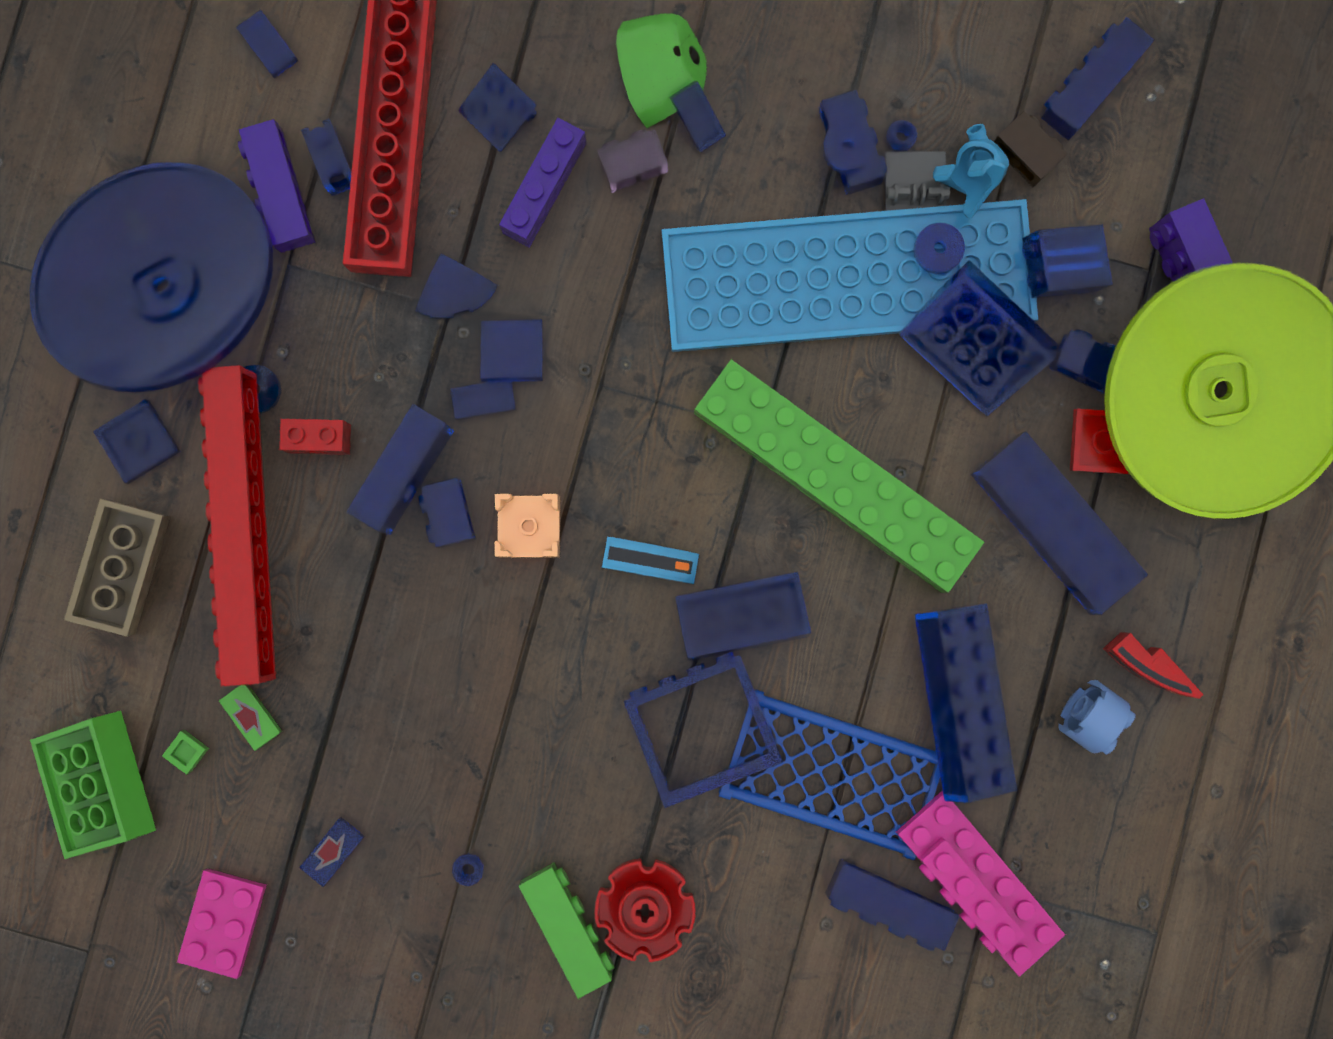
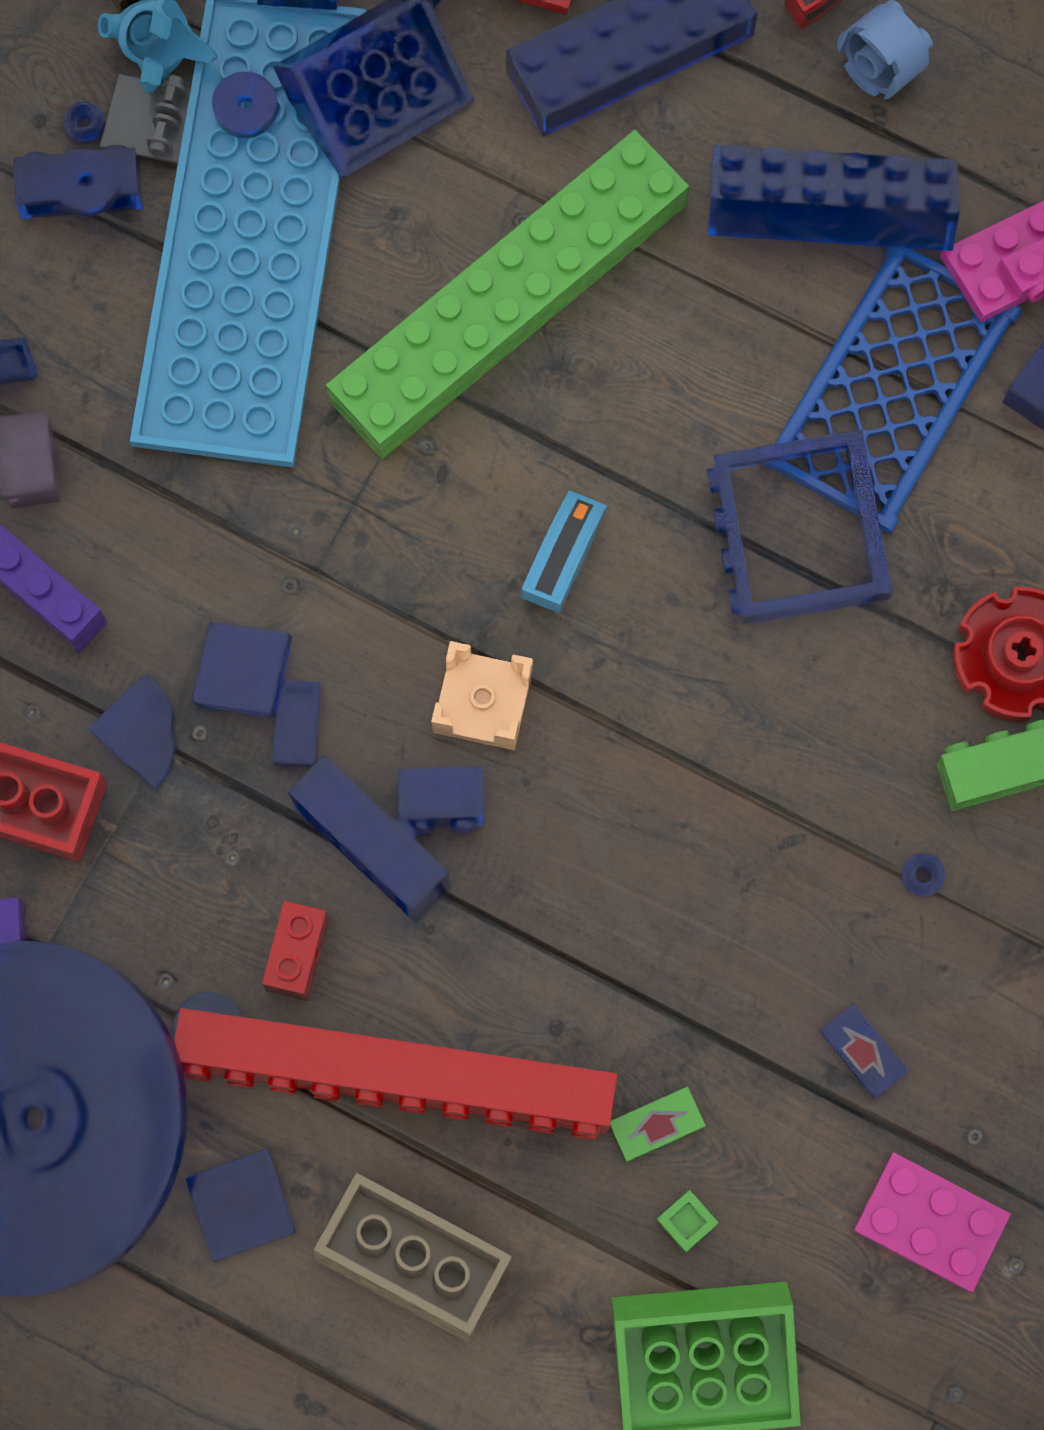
camera: 75 degrees left, 10 degrees down
(743, 616) = (663, 447): clear blue brick -> none

